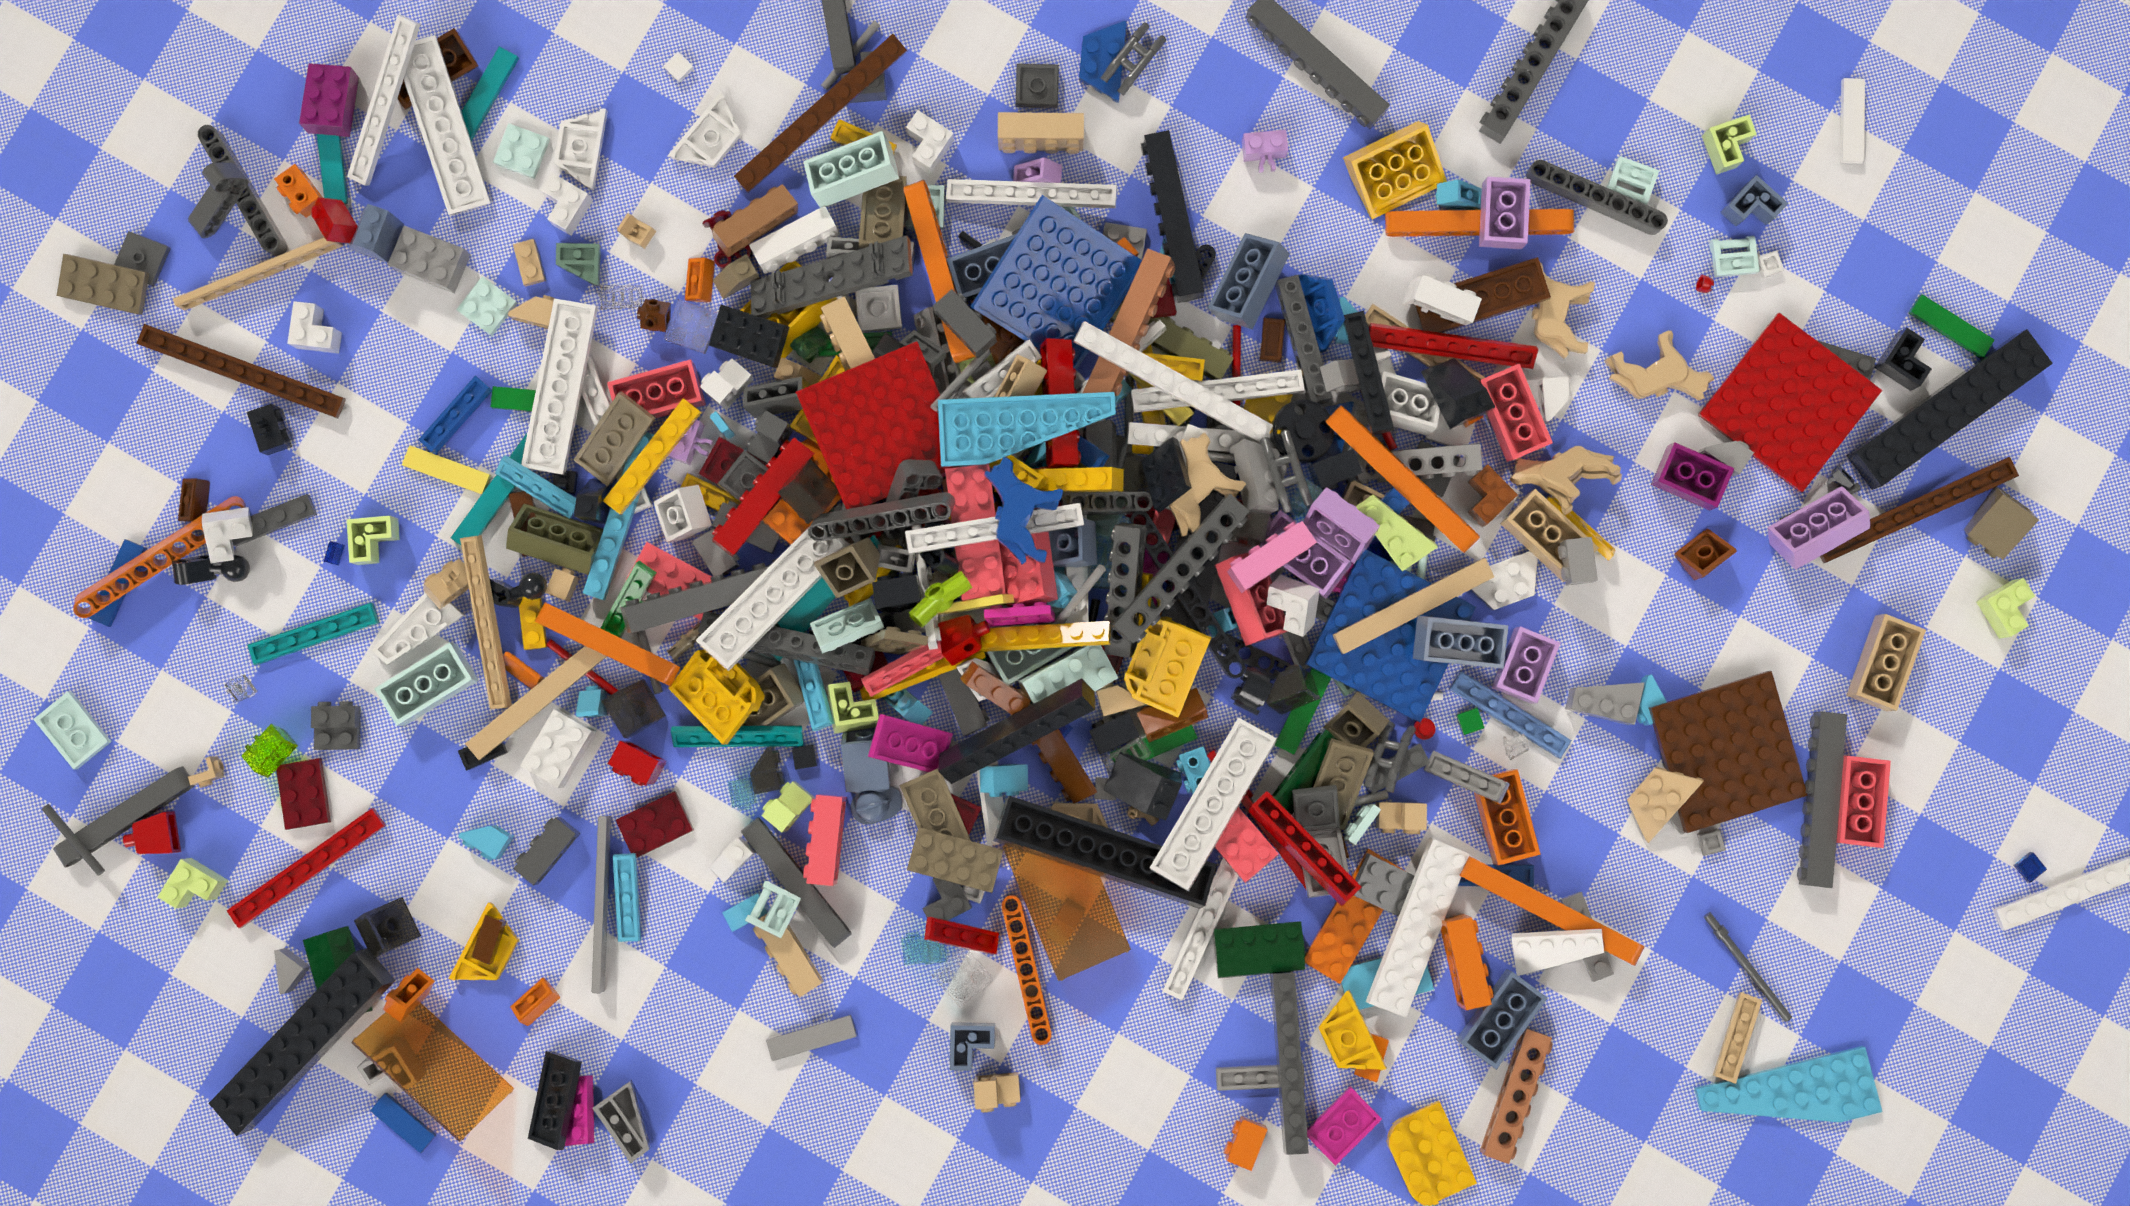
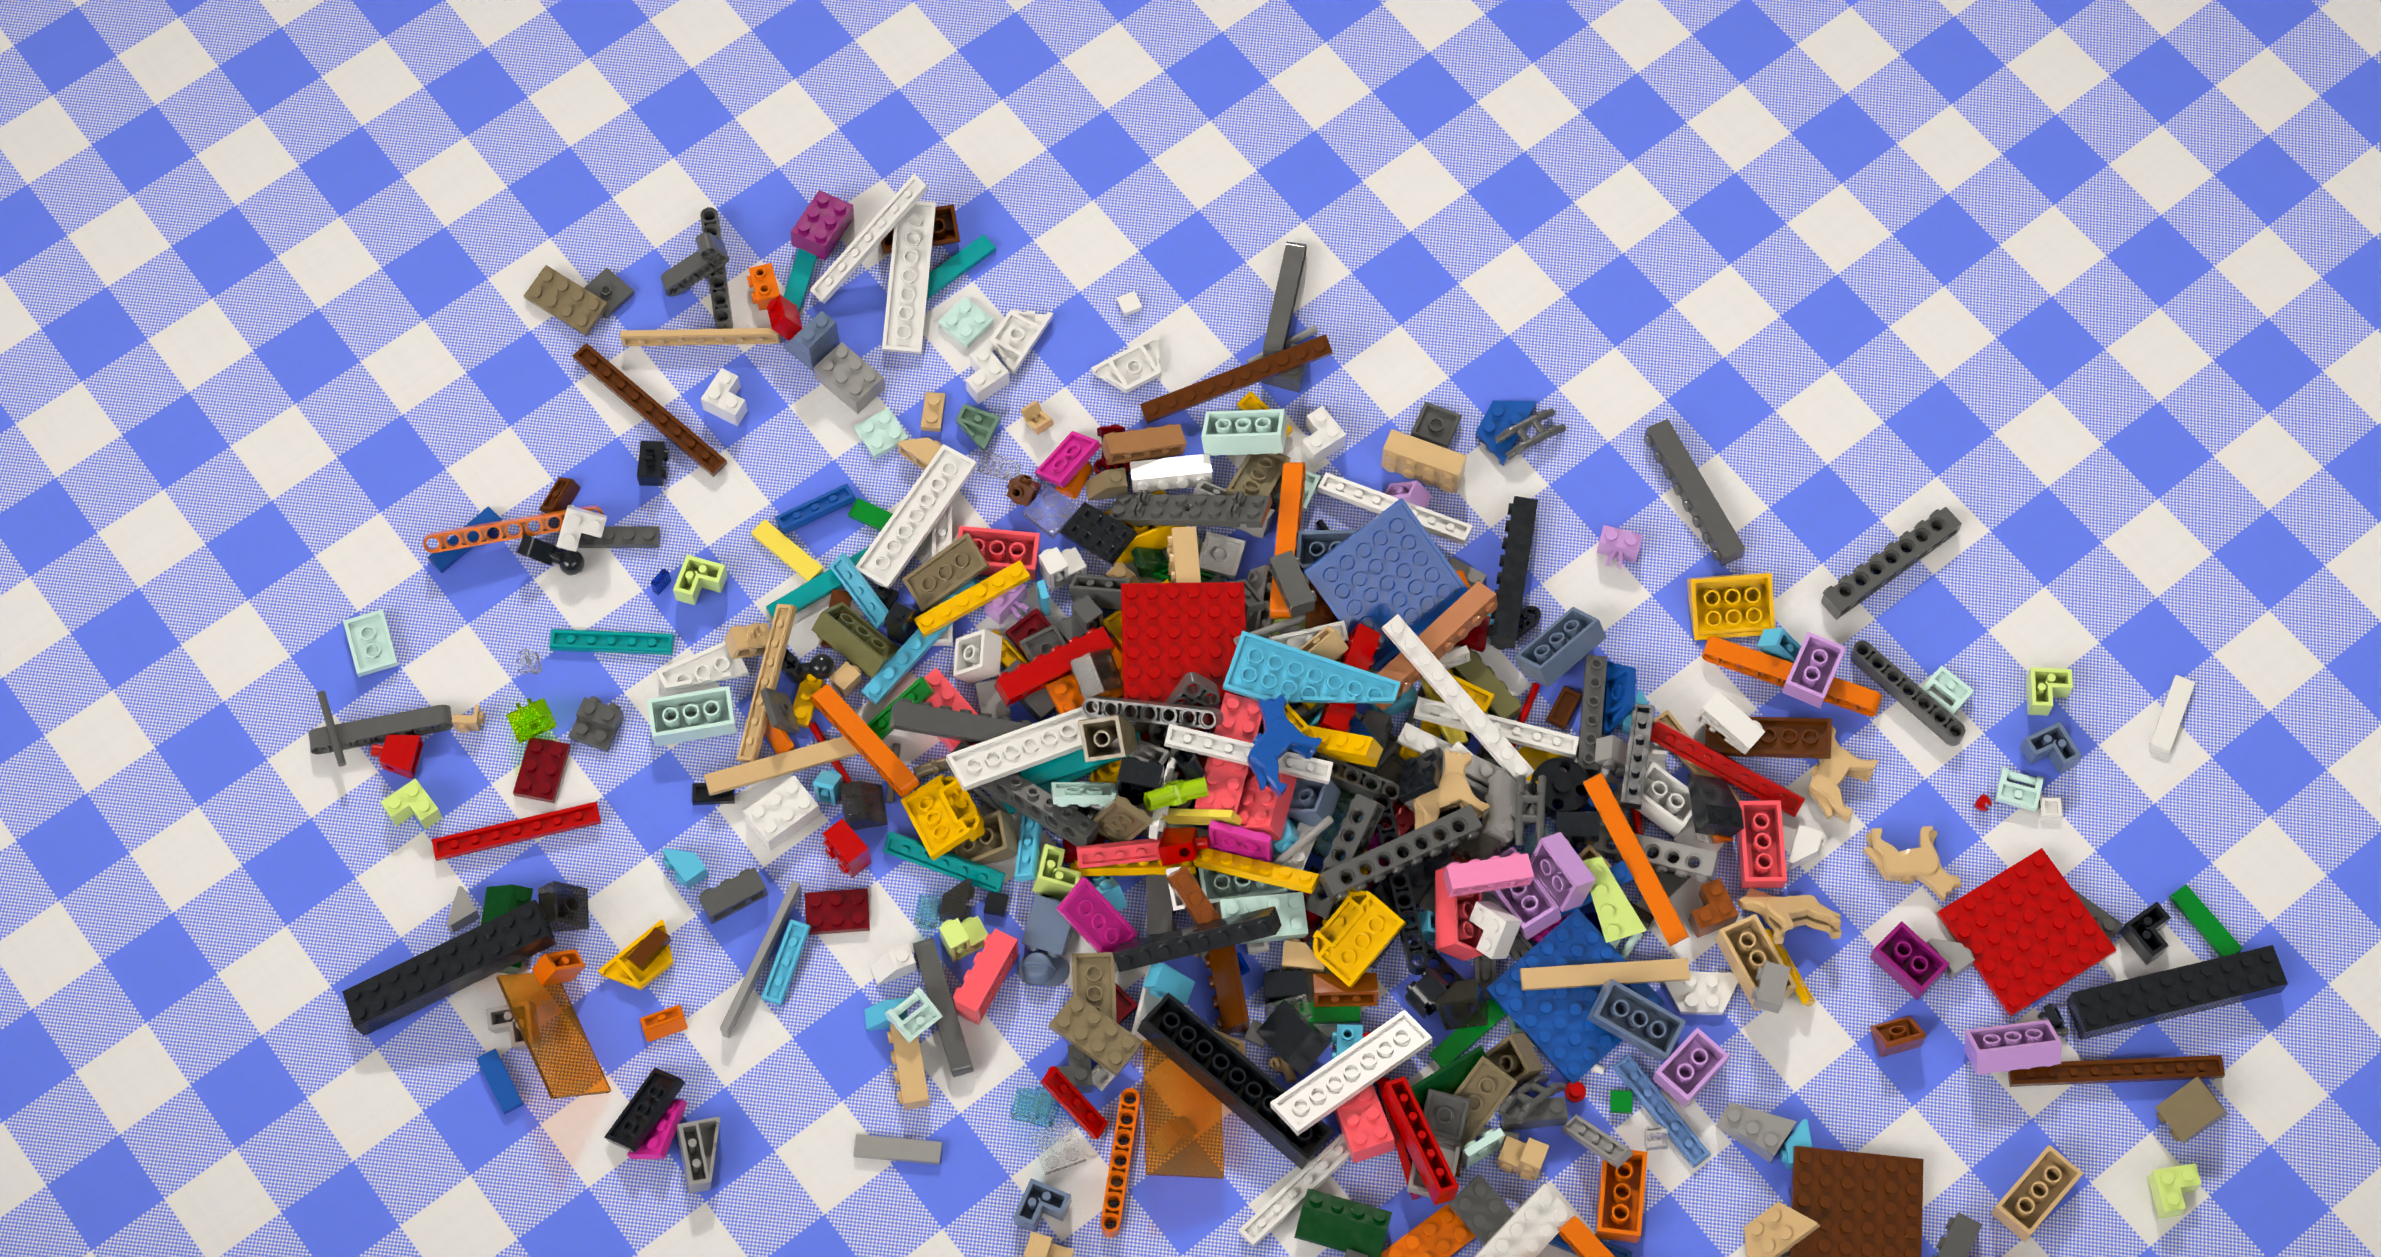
camera: 25 degrees right, 20 degrees down
(511, 648) = (779, 710): none -> dark grey plate
(685, 264) = (1067, 459): none -> dark pink plate

